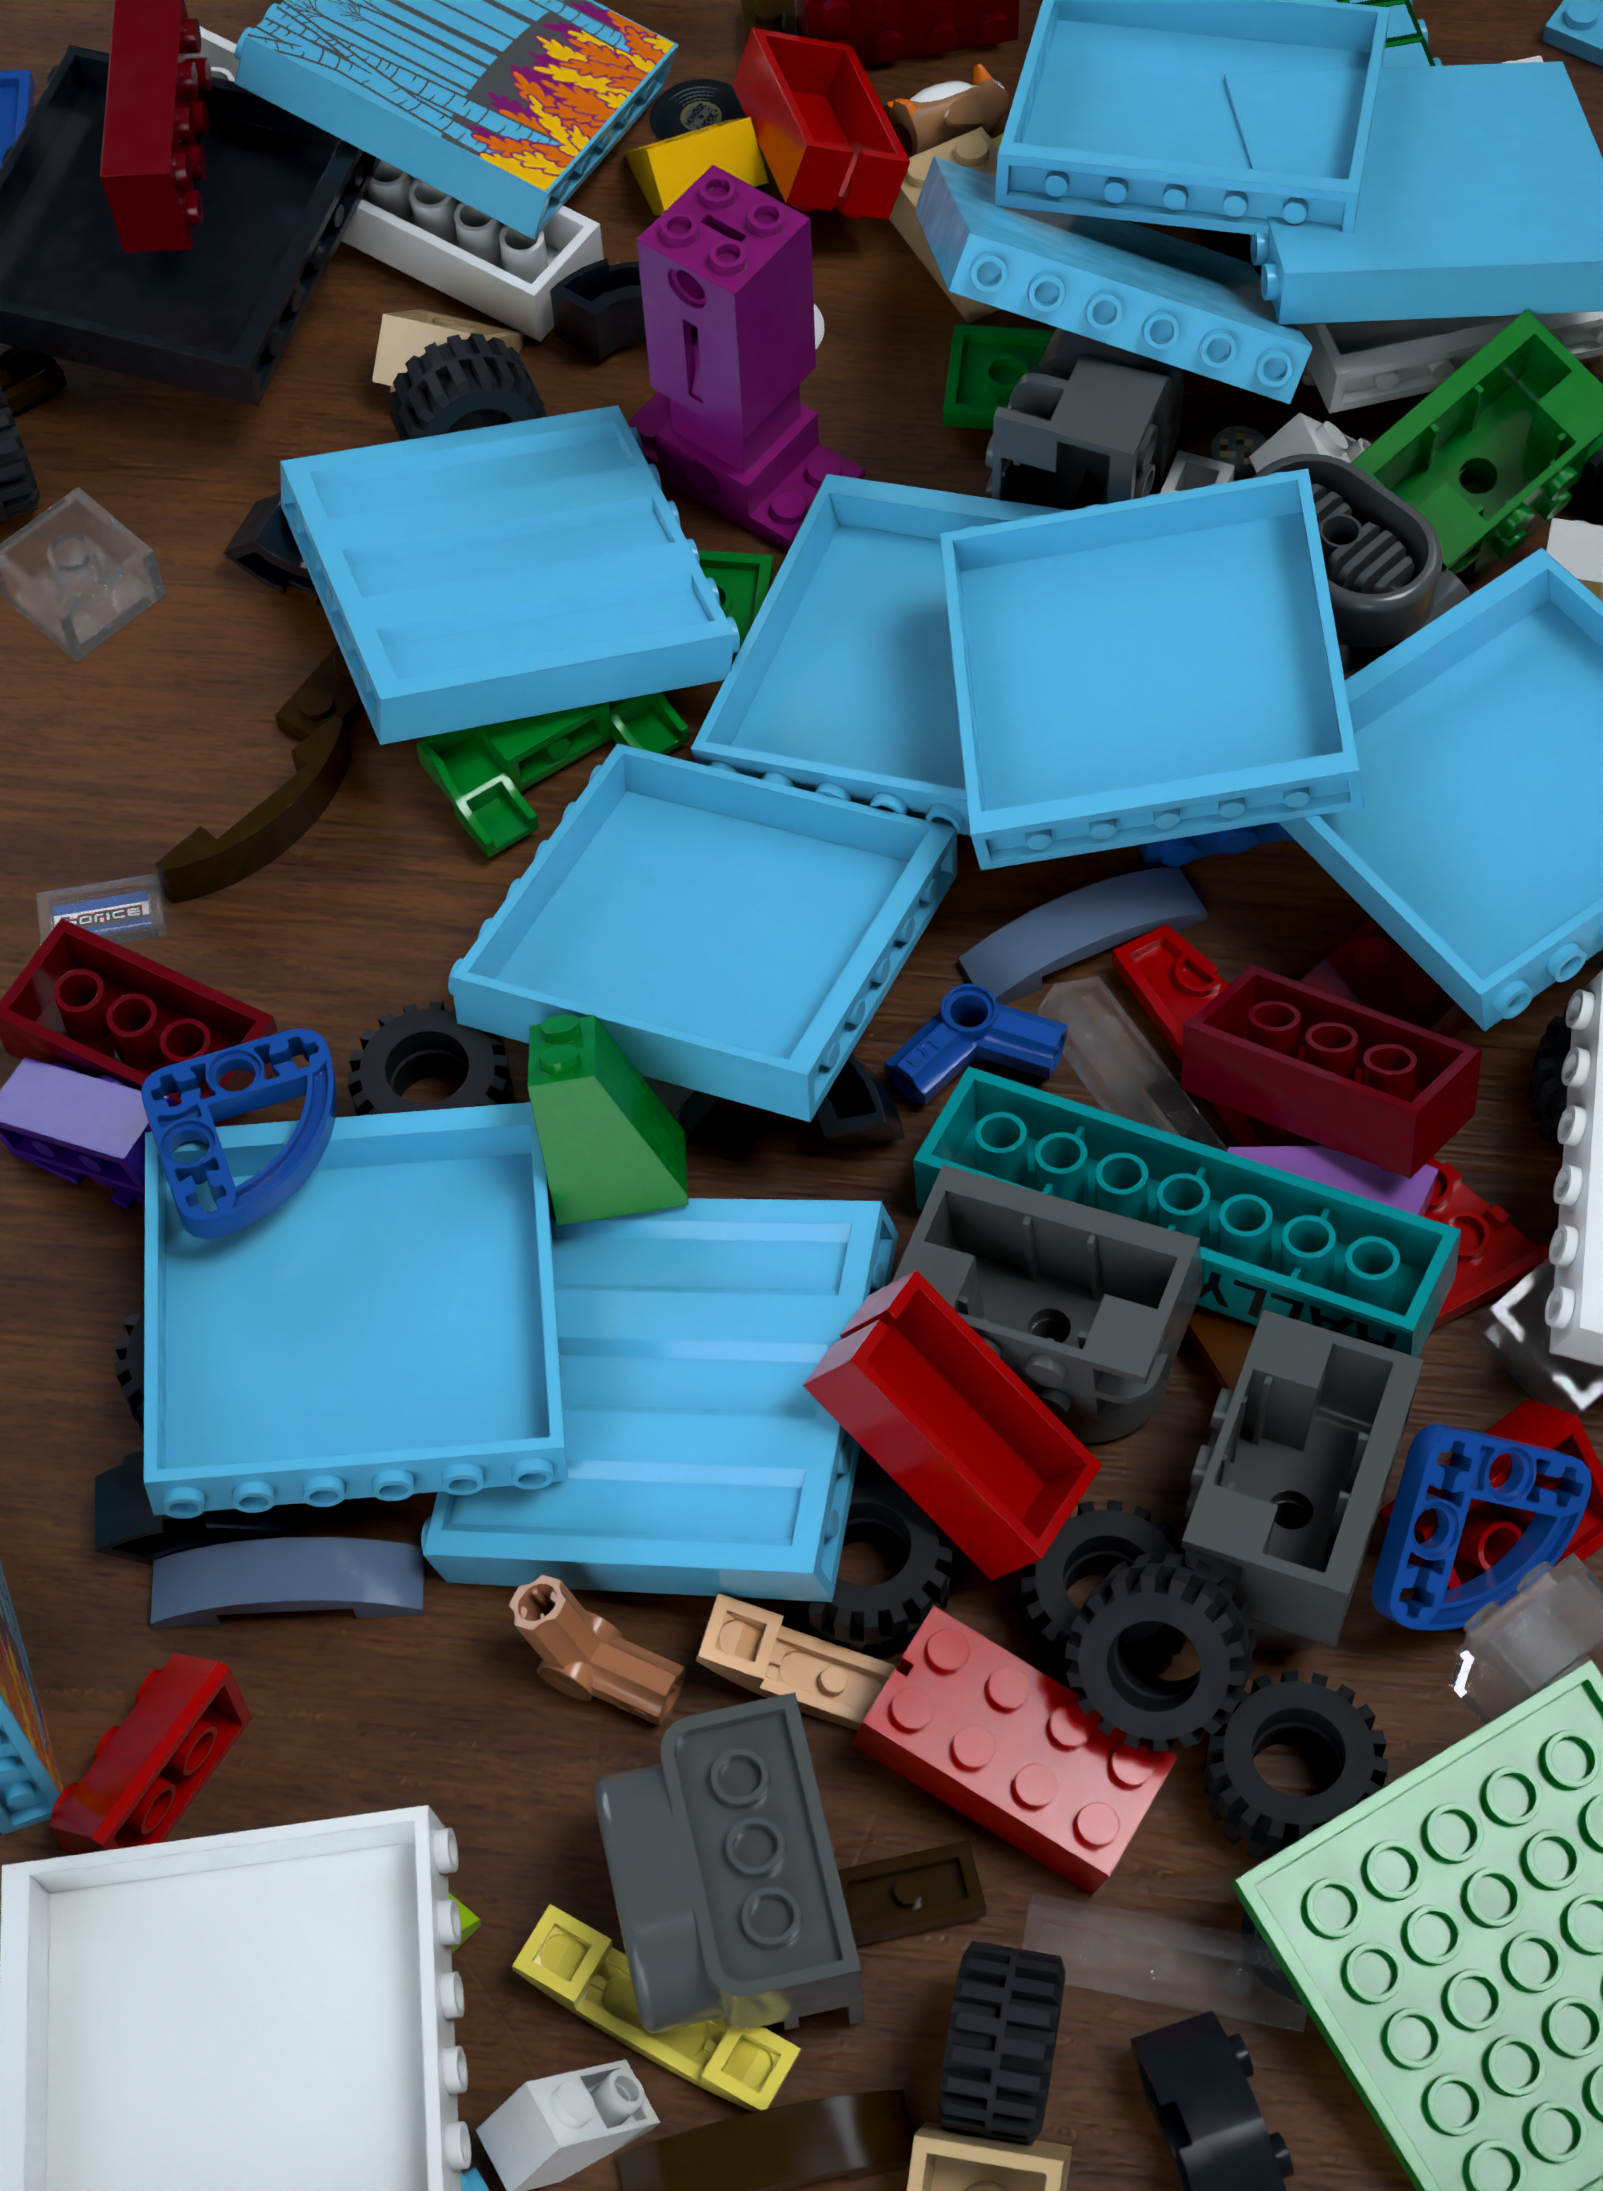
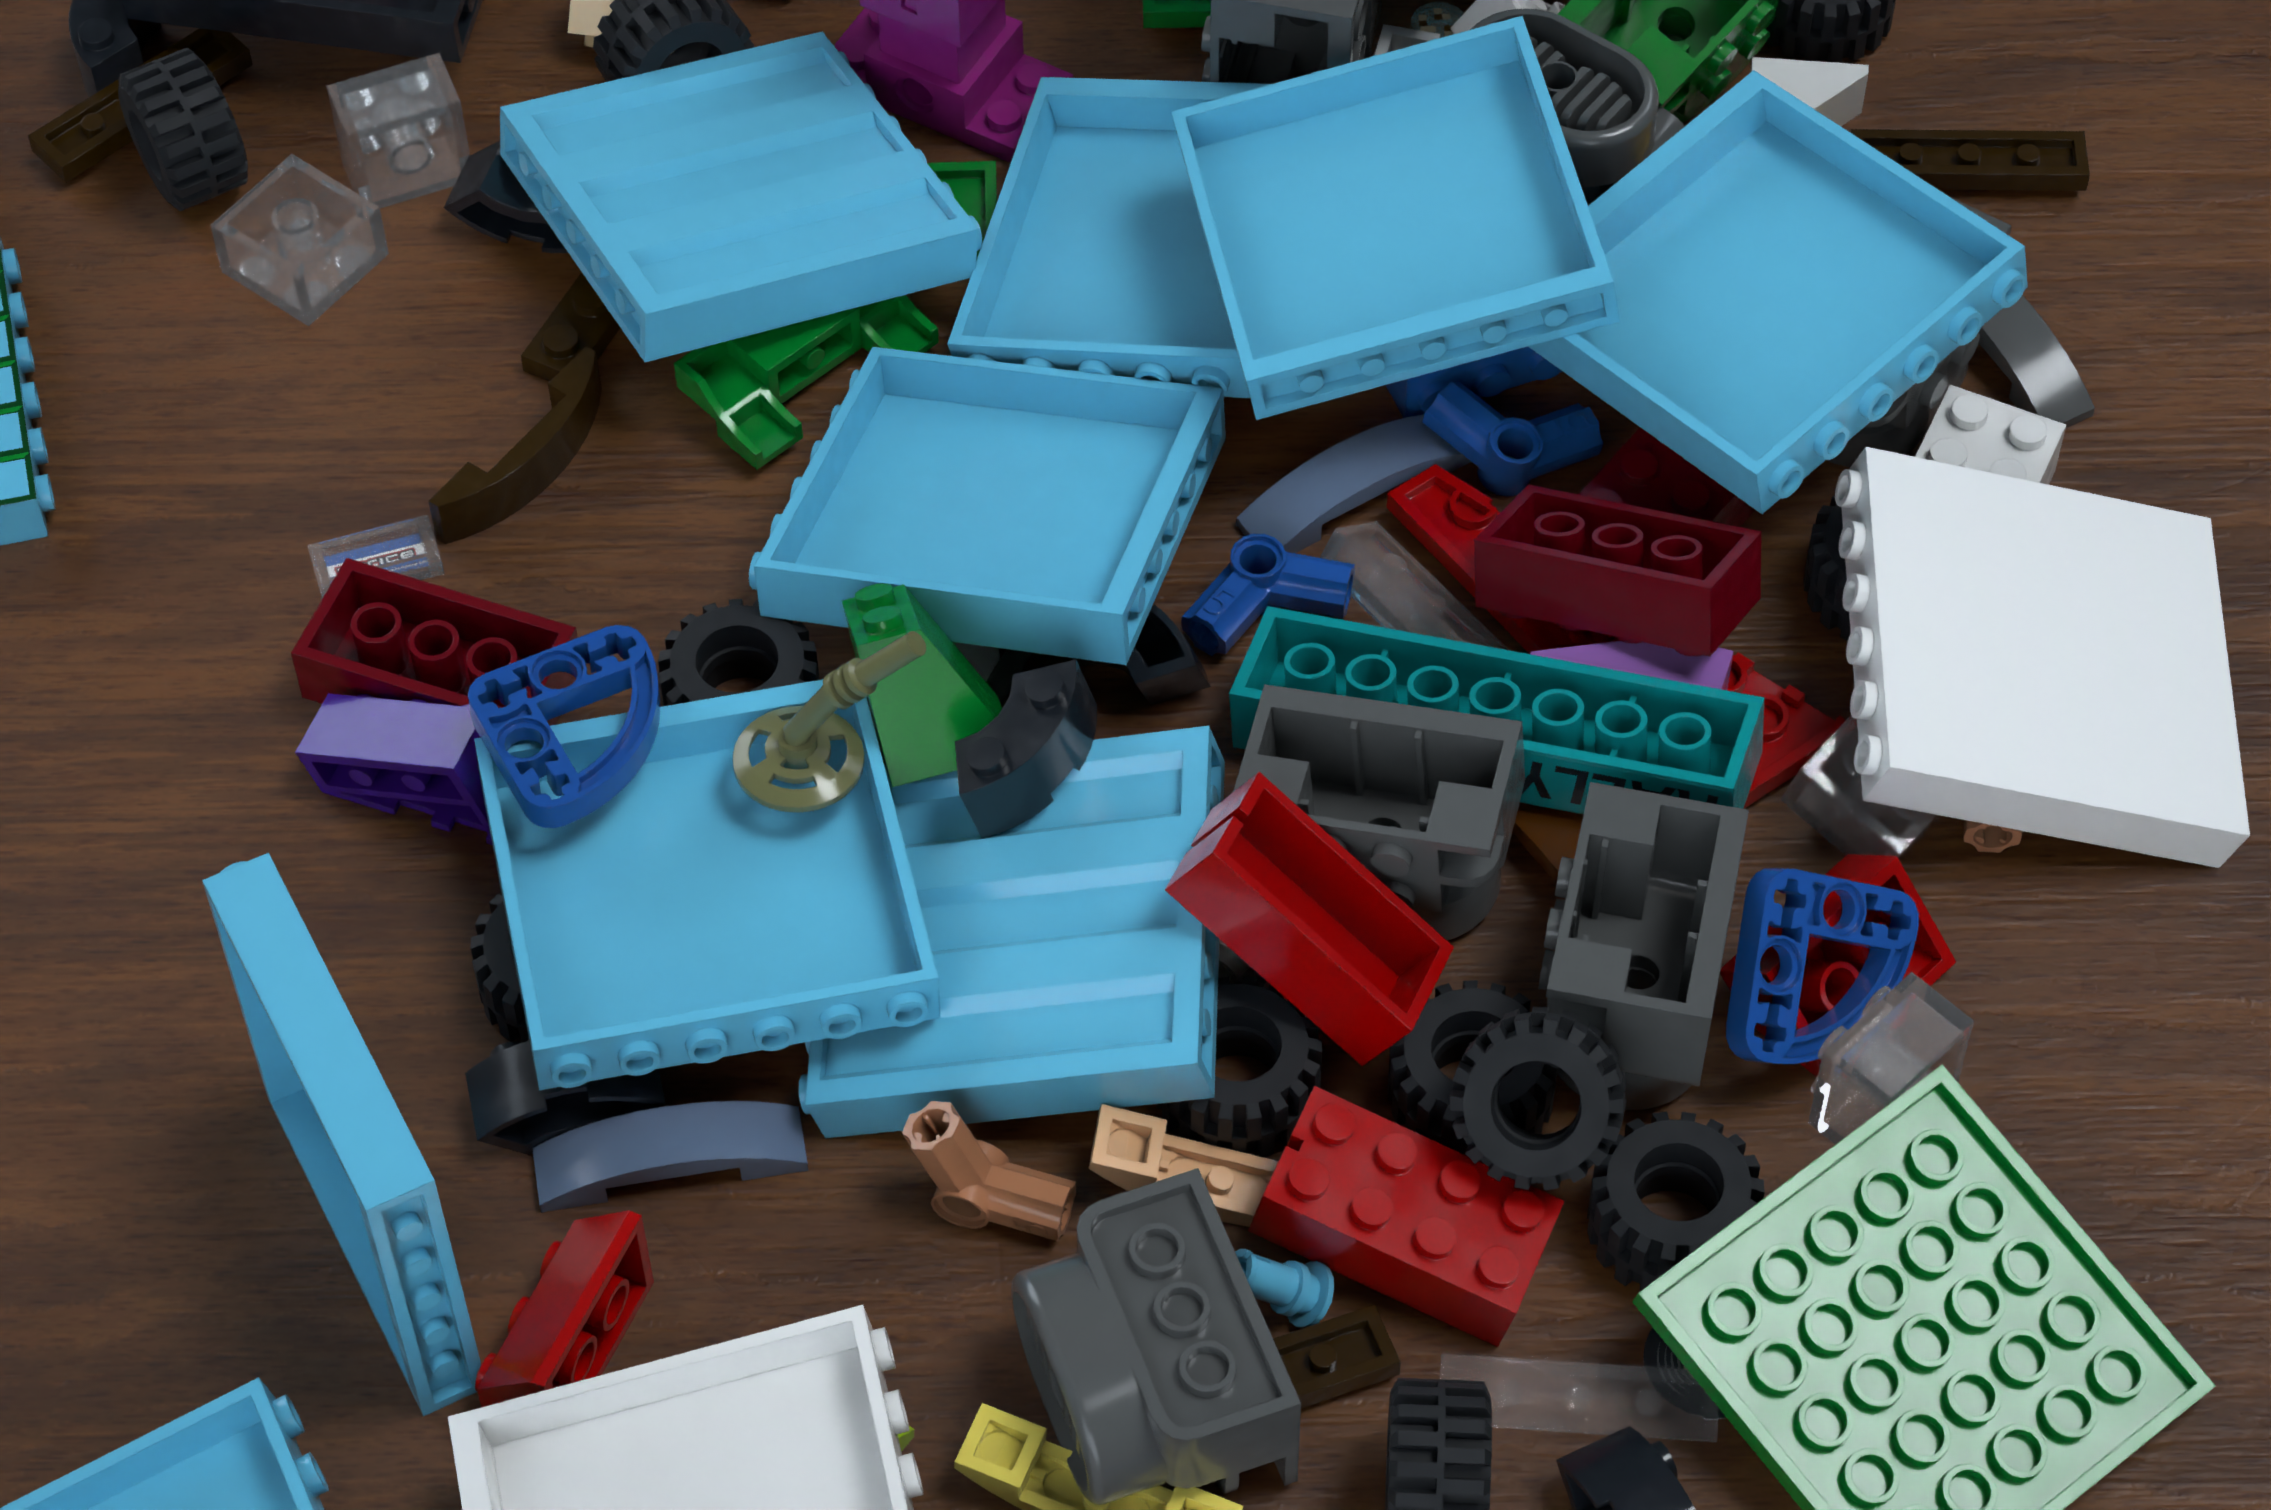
camera: 10 degrees left, 5 degrees down
(188, 471) = (400, 131): none -> clear brick
(469, 1173) = (801, 746): none -> olive dish
(694, 1205) = (1027, 748): none -> black brick
(886, 1812) = (1291, 1288): none -> medium azure pin
(1275, 912) = (1488, 436): none -> blue piece

